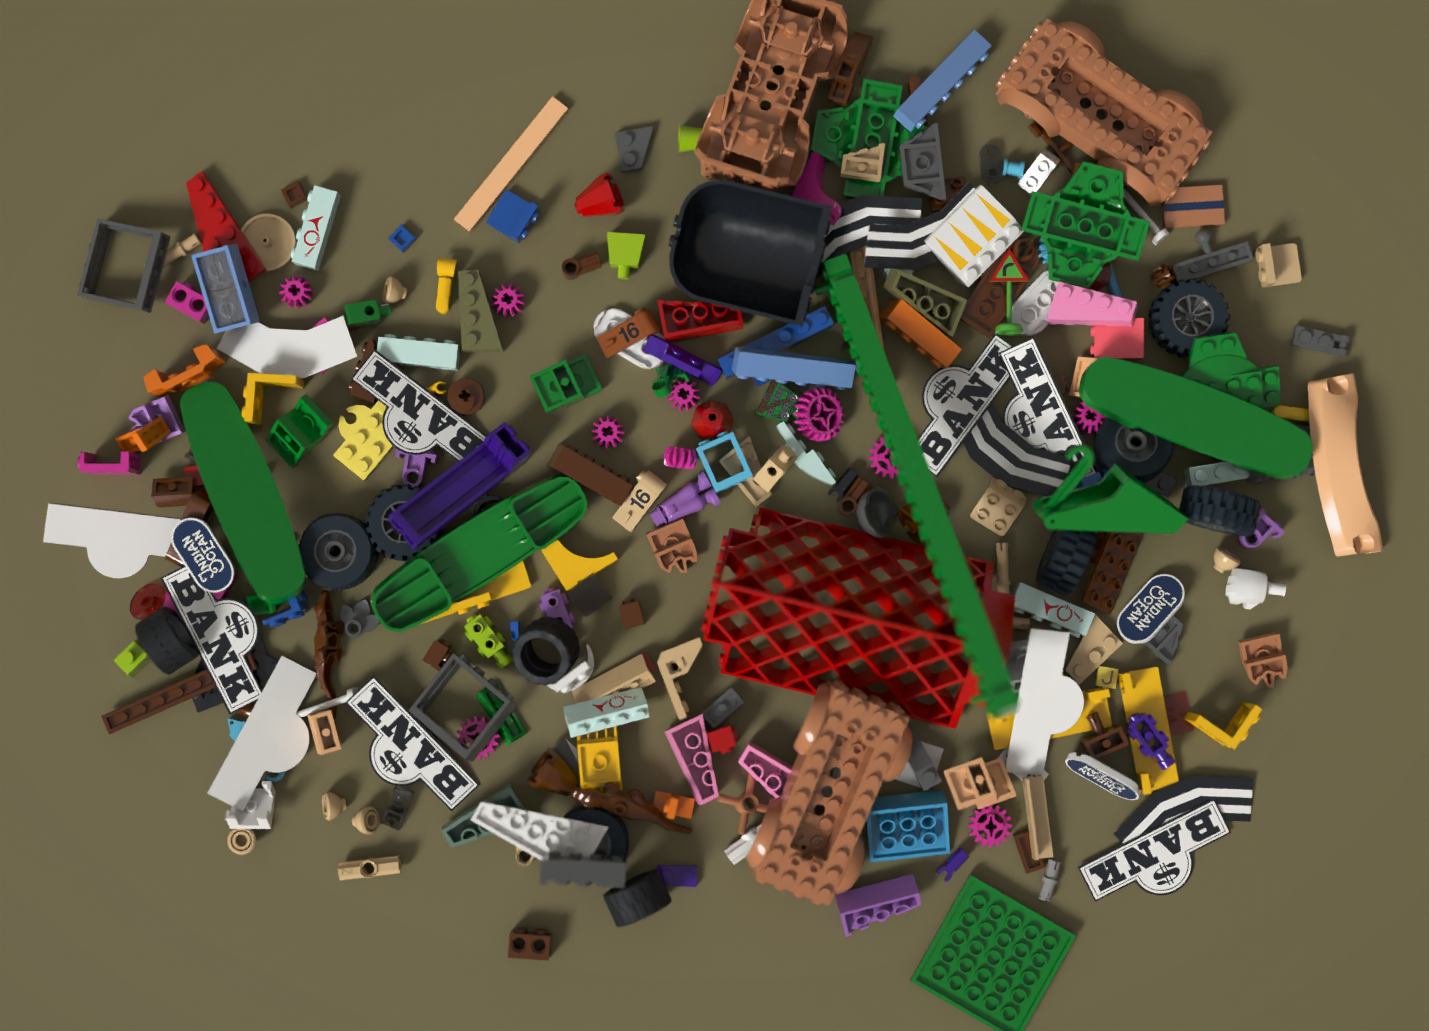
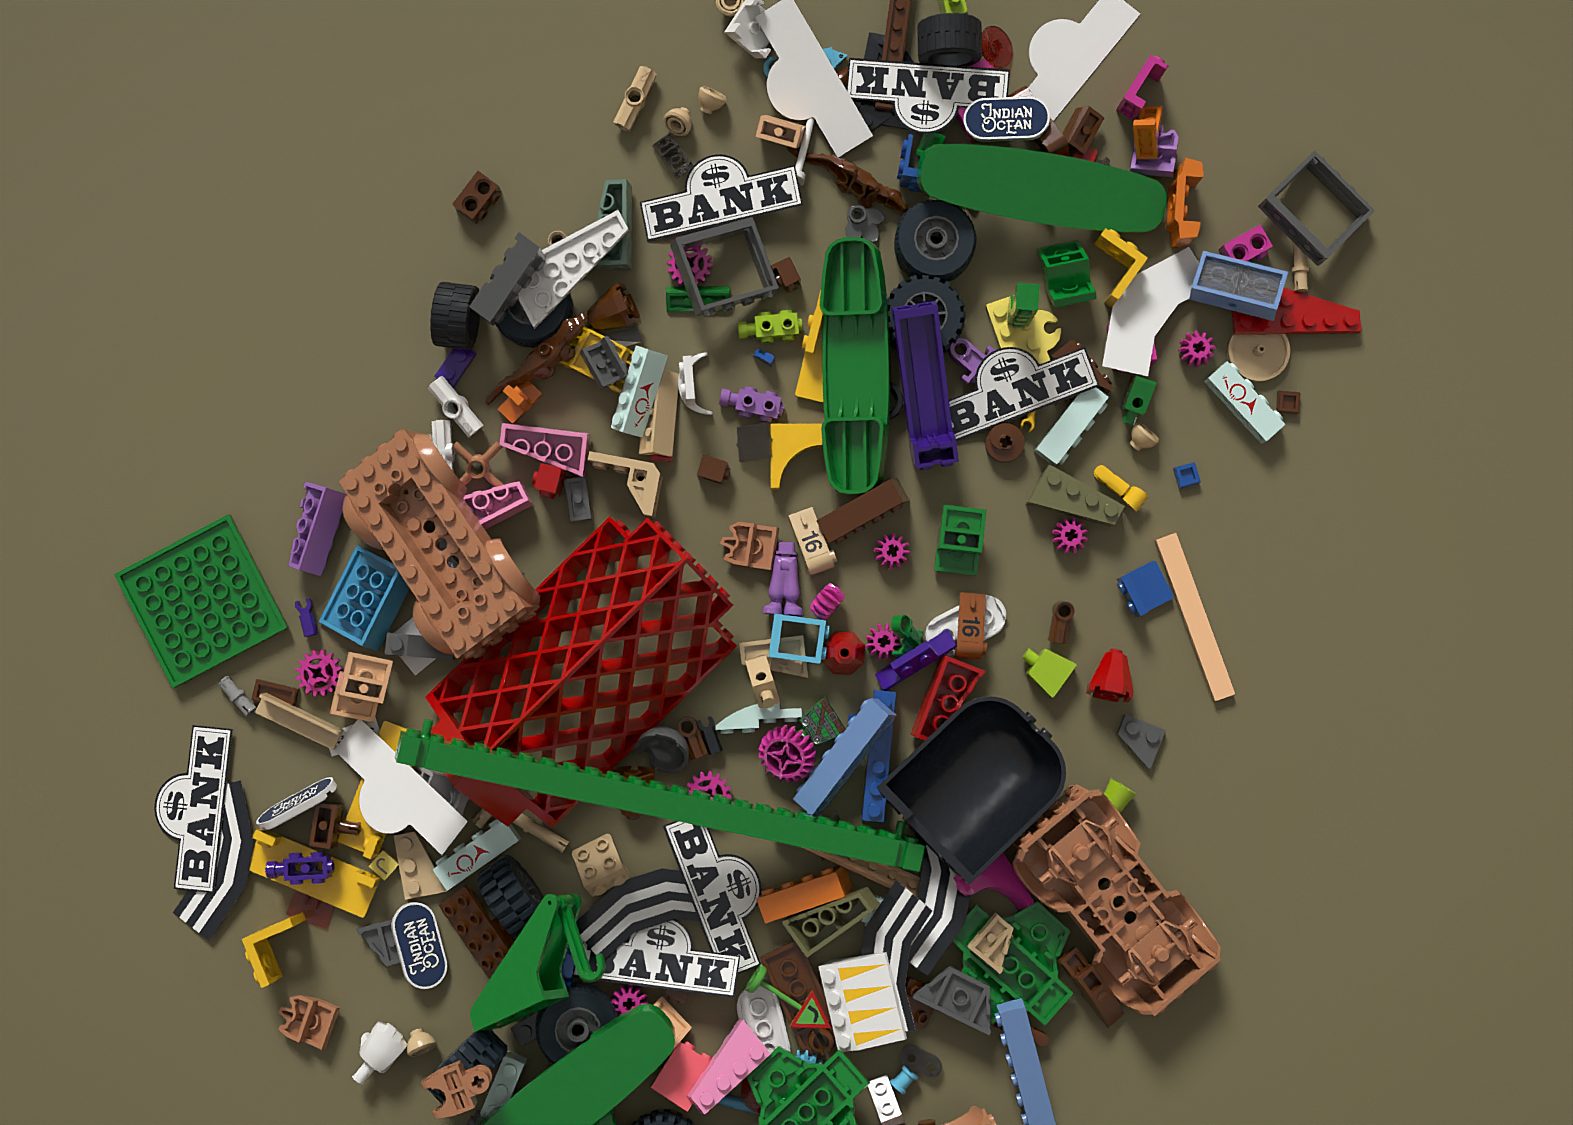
camera: 120 degrees right, 0 degrees up
(348, 446) = (1023, 305): none -> green arch
(531, 665) = (720, 352): black tyre -> none
(600, 753) = (604, 363): none -> dark grey bracket
(706, 865) = (447, 396): none -> white piece
(1237, 502) = (458, 1086): none -> nougat piece
(1263, 529) = (425, 1098): medium lavender pin -> none

